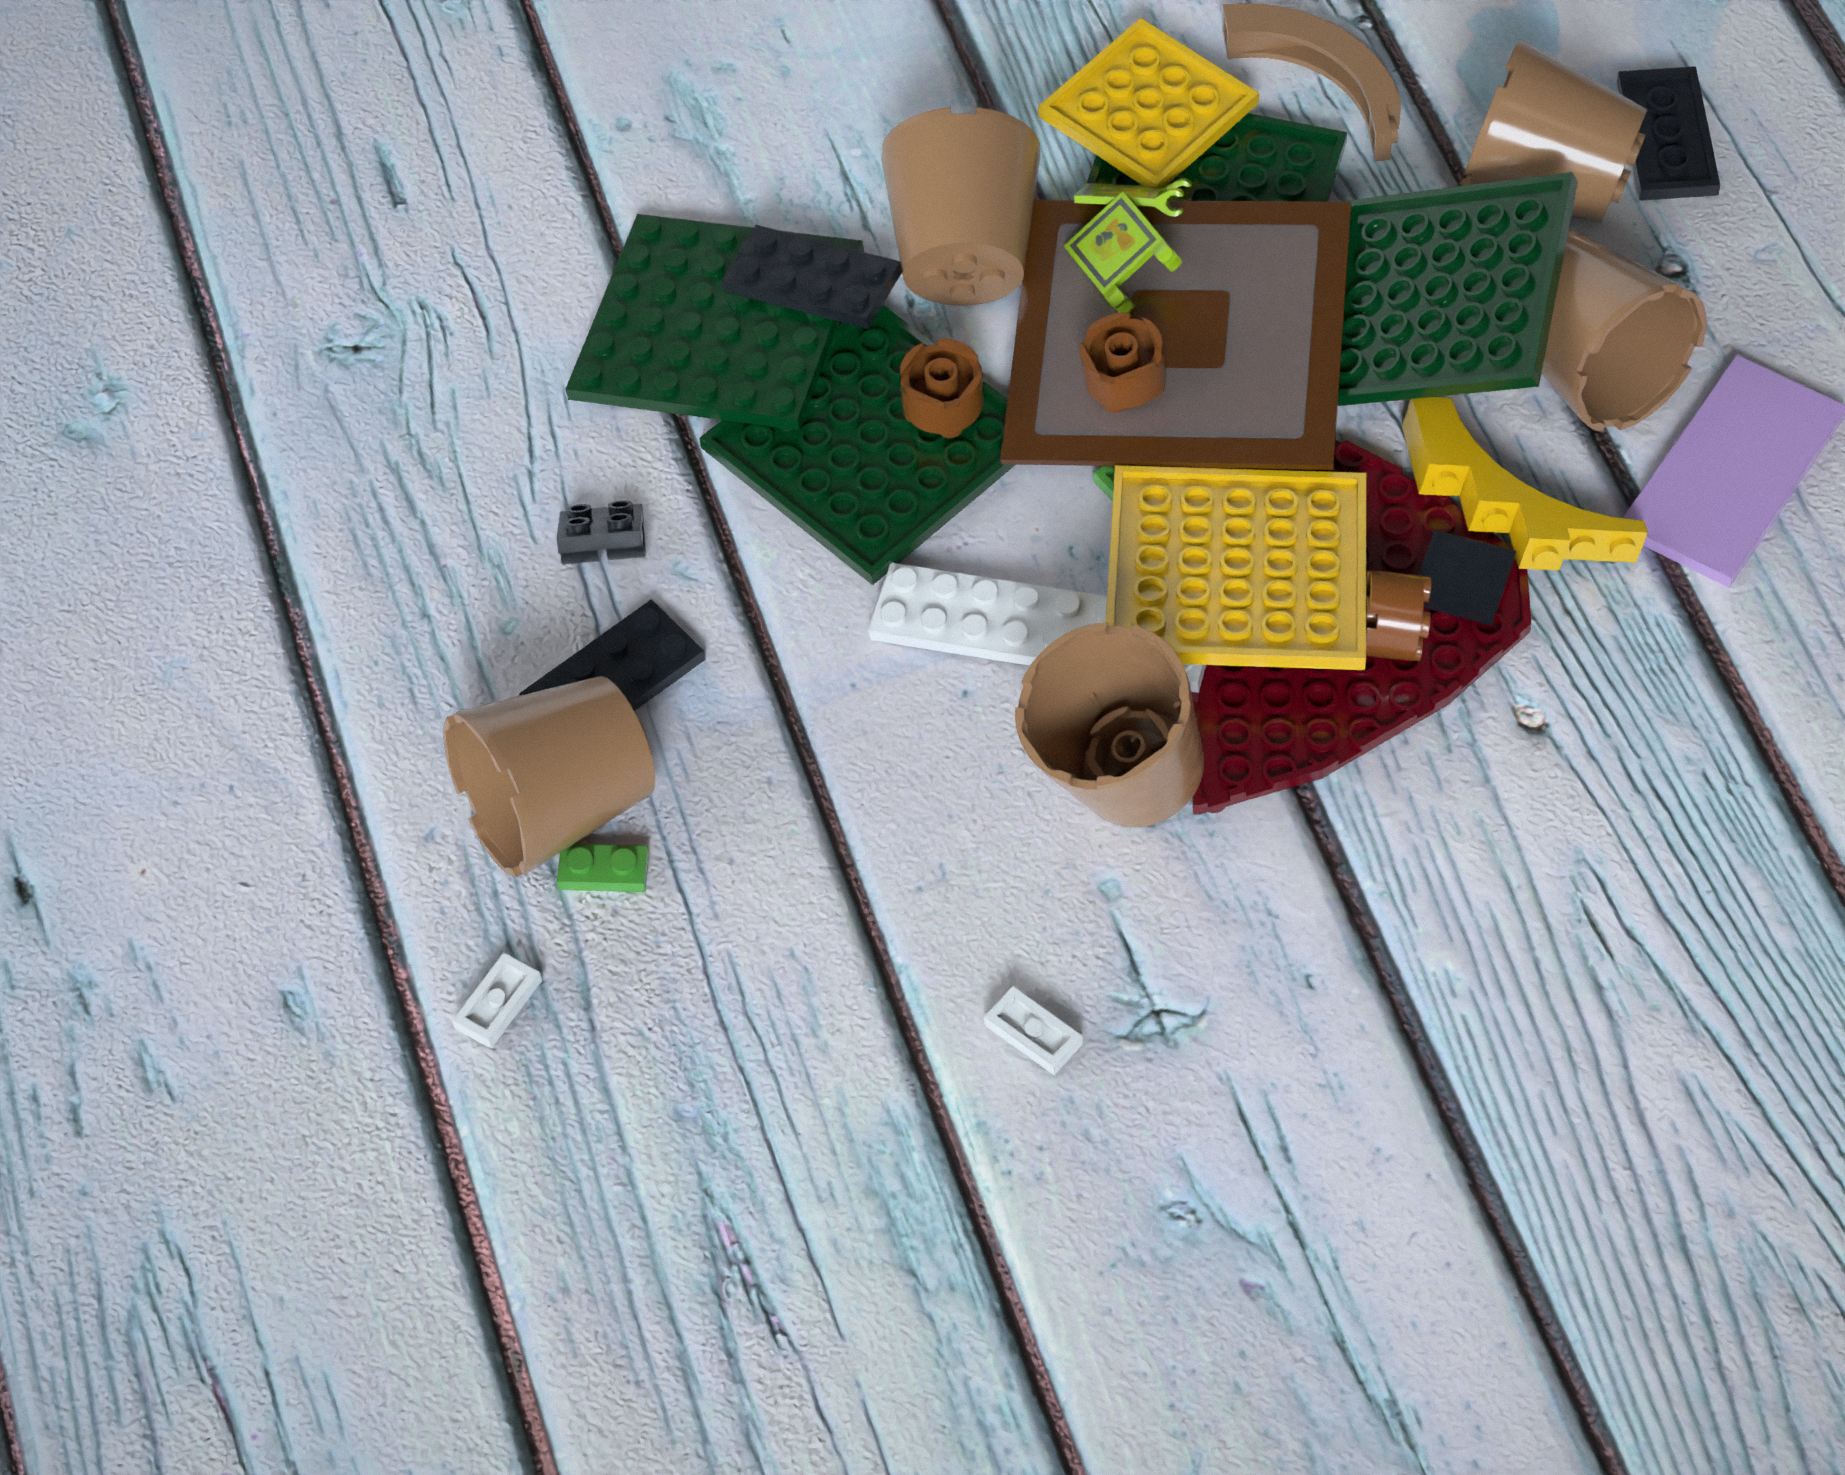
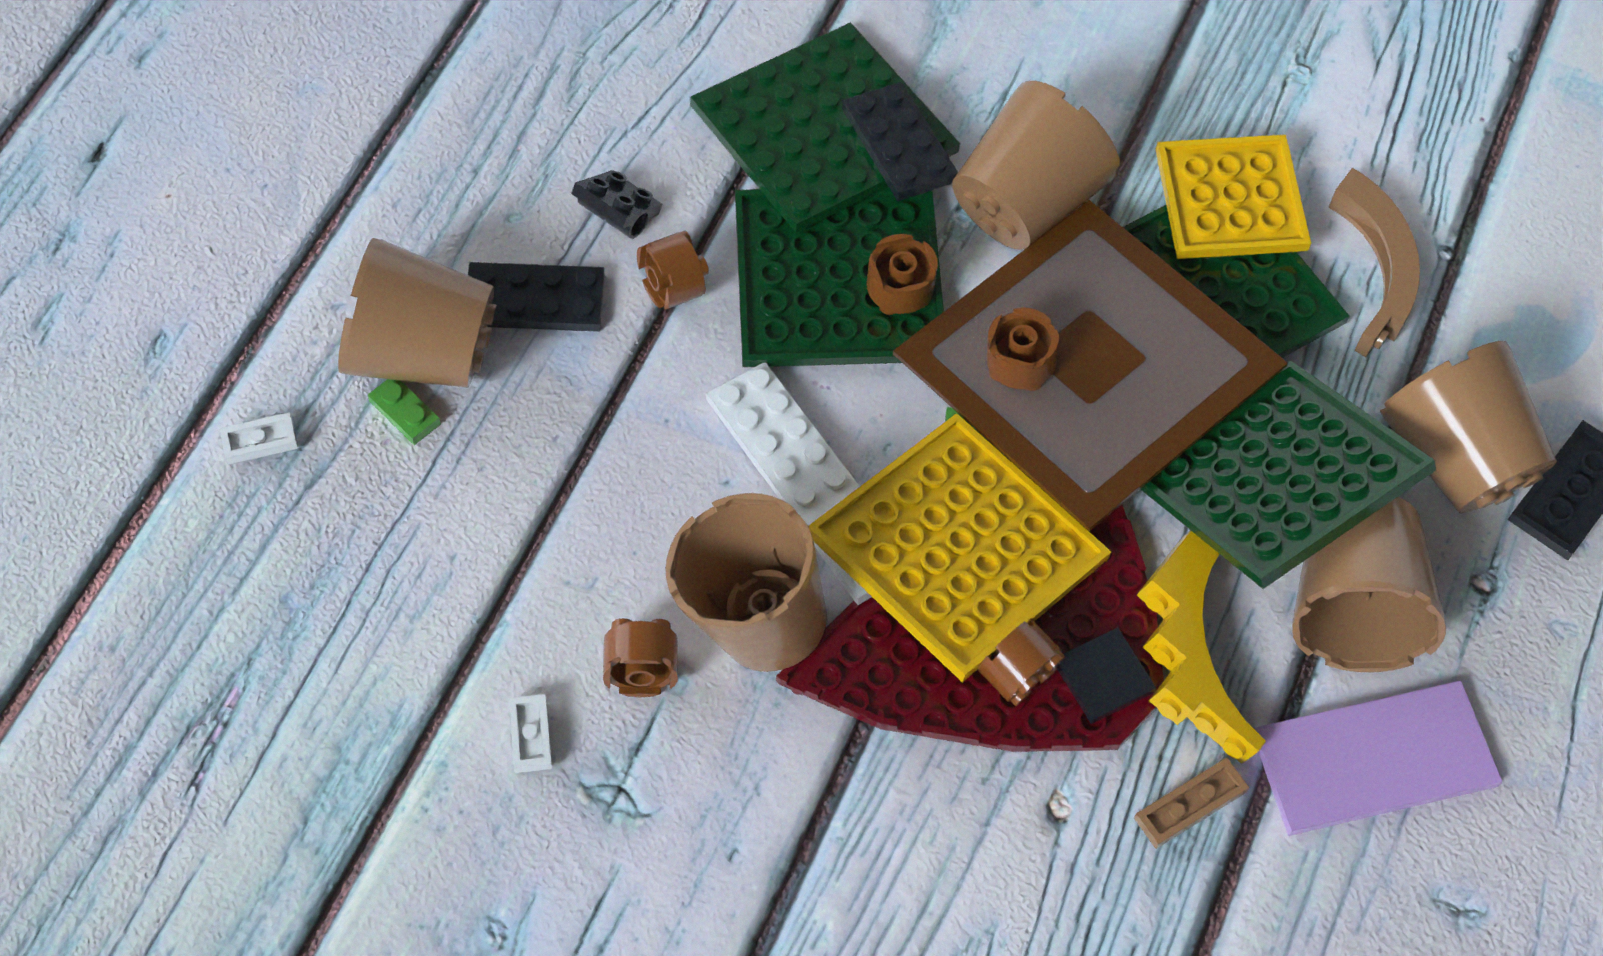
camera: 35 degrees right, 5 degrees up
(726, 547) = (672, 270): none -> dark orange brick
(1065, 884) = (640, 657): none -> dark orange brick
(1116, 247) = (1100, 270): lime flag -> none
(1139, 195) = (1153, 247): lime flag -> none
(1632, 622) = (1191, 803): none -> medium nougat plate

